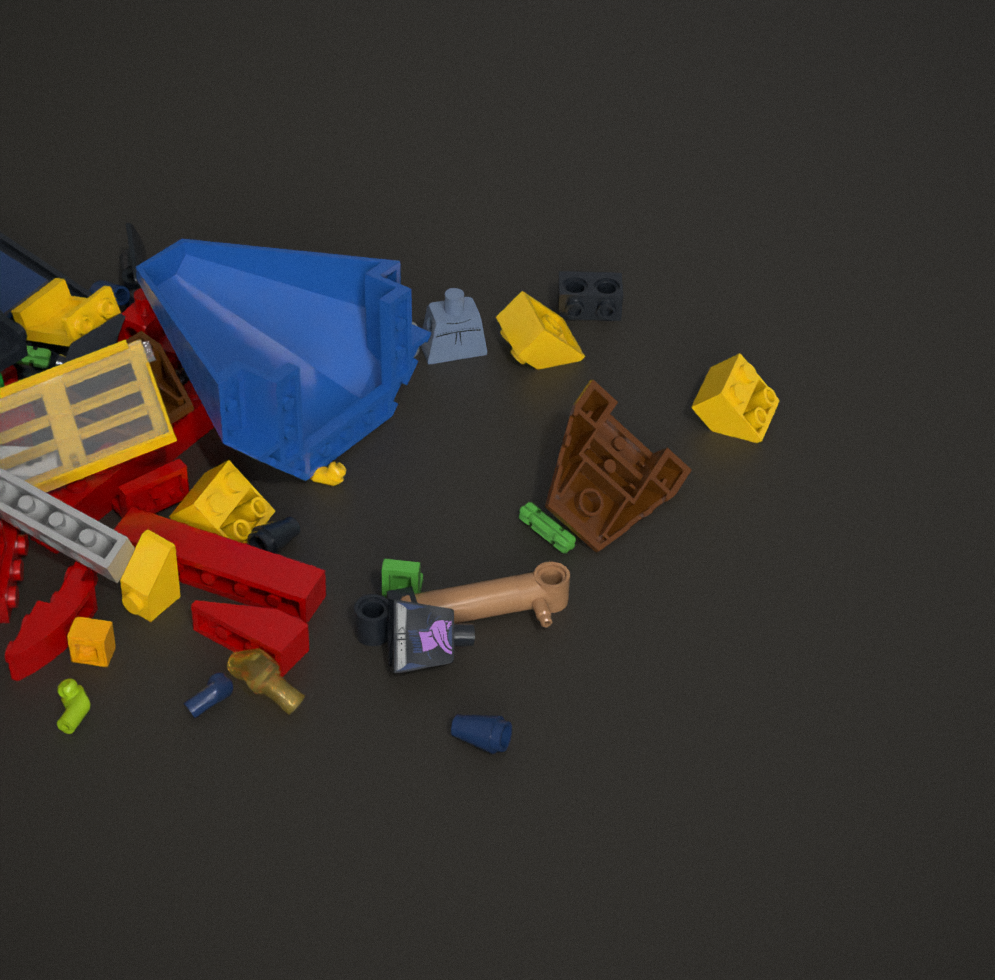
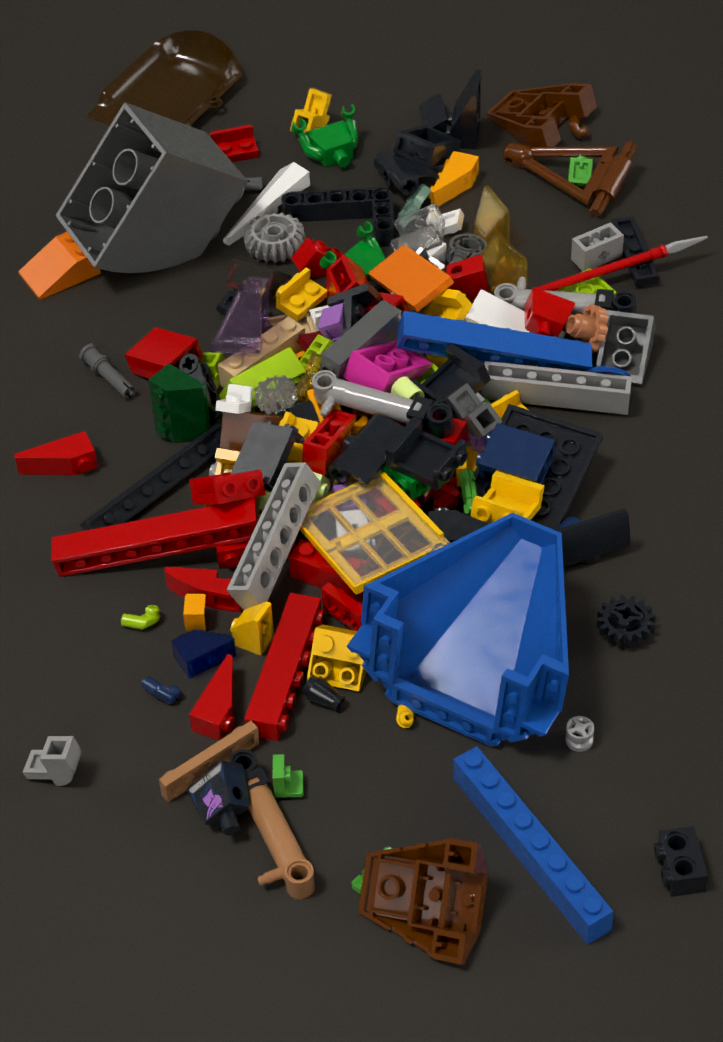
camera: 85 degrees right, 5 degrees up
(161, 645) = (201, 650): none -> clear blue slope
(263, 676) = (170, 710): clear yellow arm -> none
(313, 808) = (55, 761): none -> light grey brick
(371, 682) = (178, 780): none -> medium nougat plate
(454, 329) = (585, 758): sand blue torso -> none
(483, 731) = (144, 857): dark blue cone -> none
(537, 334) = (614, 830): yellow slope -> none
(539, 394) = (533, 845): none -> blue brick
(736, 400) = (563, 994): yellow slope -> none

